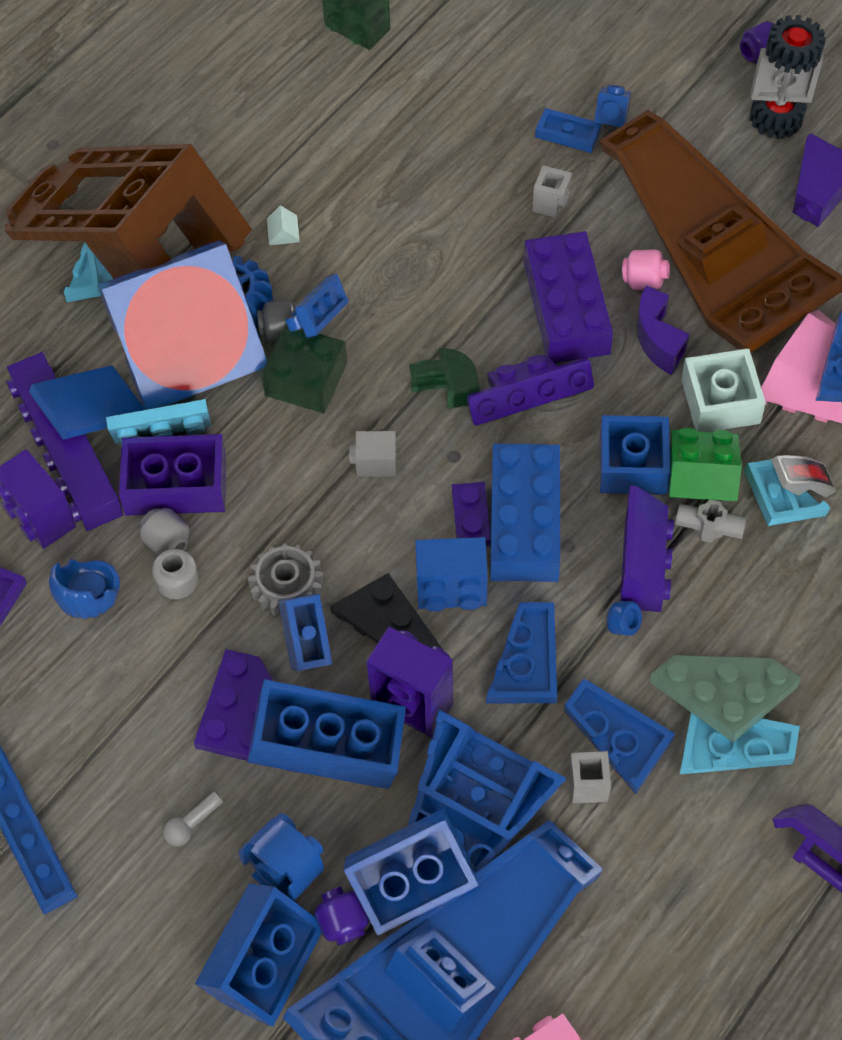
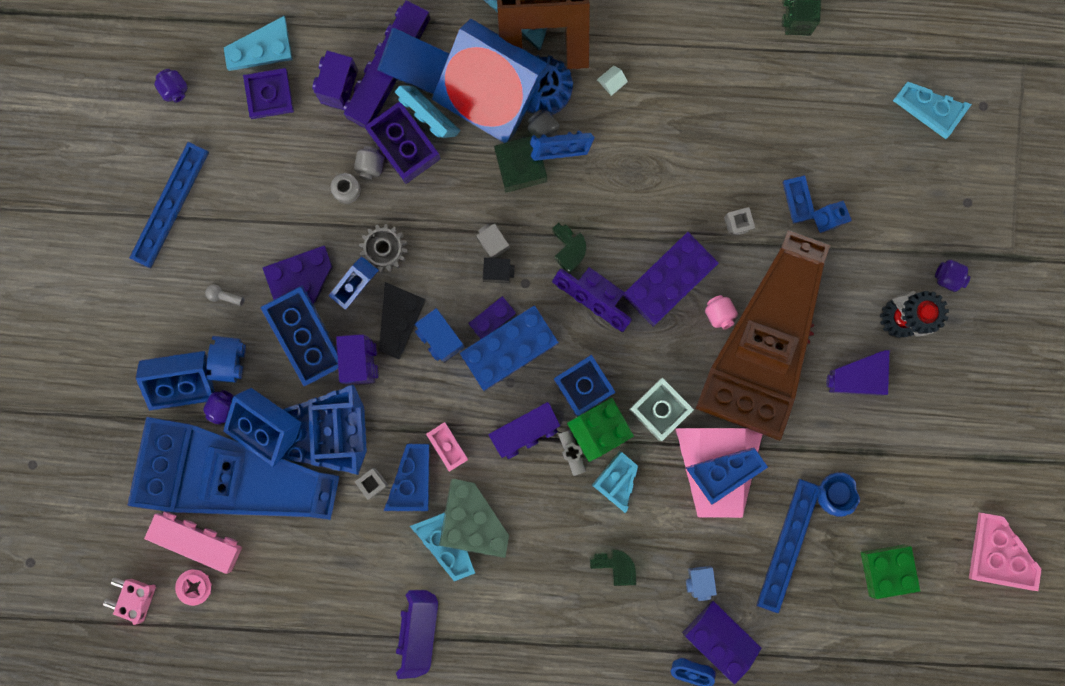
camera: 55 degrees right, 25 degrees up
(84, 587) = (305, 146): blue piece -> none
(415, 469) = (498, 270): none -> black brick
(529, 658) = (424, 406): blue wing -> none
(602, 661) = (447, 446): none -> bright pink plate
(624, 618) = (480, 442): blue tile -> none
(659, 340) = (674, 355): dark purple brick -> none
(803, 474) = (633, 487): slope -> none

